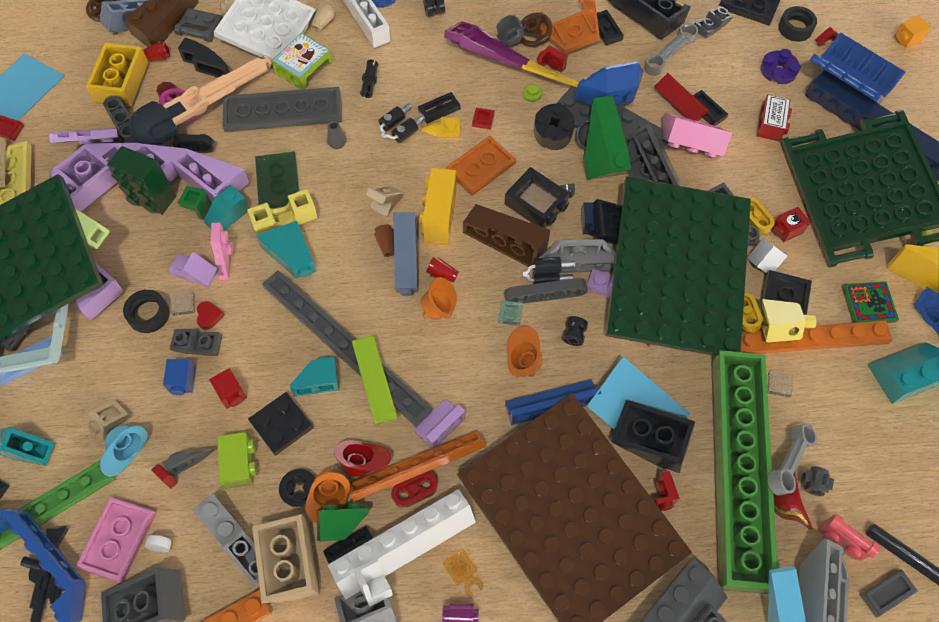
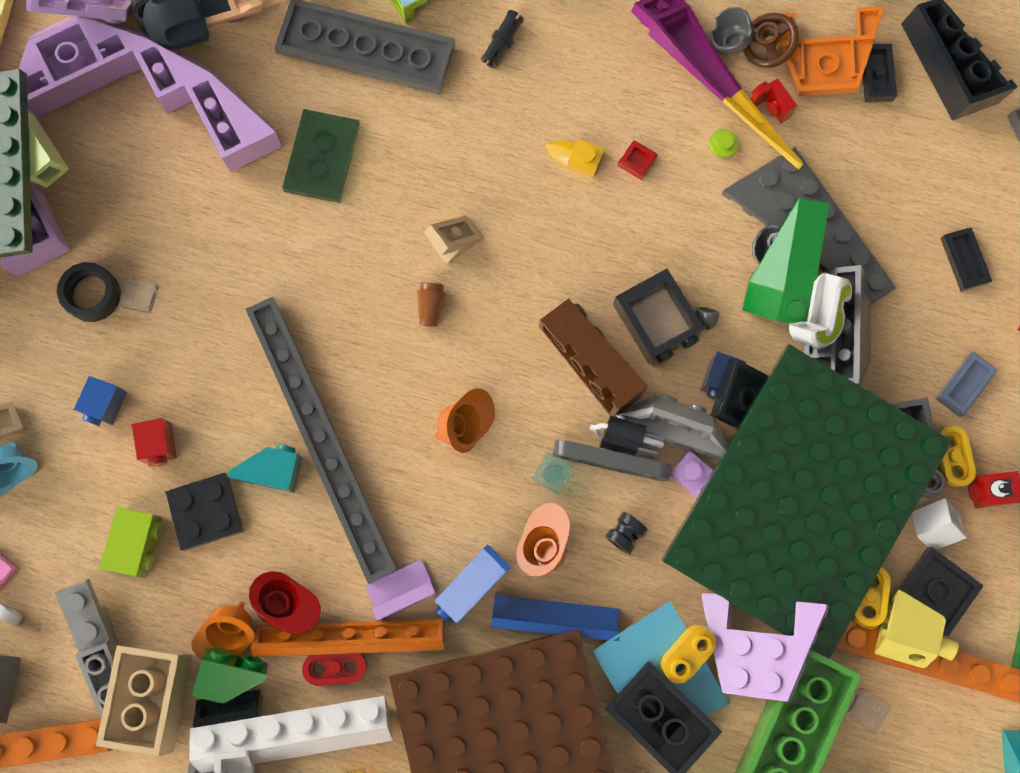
camera: 20 degrees right, 15 degrees up
(141, 180) = (134, 102): dark green brick -> none
(161, 473) = (40, 527): red tile -> none
(182, 460) = (66, 517): dark grey plate -> none
(193, 269) = (167, 252): lavender slope -> none
(195, 200) = (199, 154): green panel -> none
(196, 343) = (137, 358): dark grey slope -> none
(197, 143) = (234, 62): black plate -> none
(208, 315) = (165, 325): red tile -> none
(222, 249) = (208, 239): bright pink wing -> none
(226, 208) = (236, 180): teal slope -> none
(286, 488) = (182, 602): black gear -> none
(288, 248) = (299, 269): teal slope -> none
(299, 209) = (285, 218): light yellow arch -> none
(335, 136) = (421, 118): dark grey cone -> none
(374, 380) = (337, 503): lime tile -> none
(403, 130) = (523, 138): black piece -> none
(405, 253) = (446, 337): sand blue slope -> none
(438, 206) = (517, 282): yellow brick -> none
(440, 268) = (487, 376): red cone -> none
(441, 109) = (582, 120): black tile -> none
(481, 165) = (604, 233): orange tile -> none
(488, 395) = (471, 585): none -> slope
(554, 126) = (740, 202): black brick -> none
(615, 80) = (842, 183): blue wedge -> none
(639, 154) = (825, 312): none -> white animal
(650, 385) = (686, 652): none -> yellow plate
(671, 49) = (958, 142): light grey piece -> none
(680, 98) = (933, 231): red tile -> none
(695, 135) = (925, 301): bright pink slope -> none
(699, 371) = (761, 662): none -> lavender wing
(742, 175) = (966, 384): none -> sand blue tile

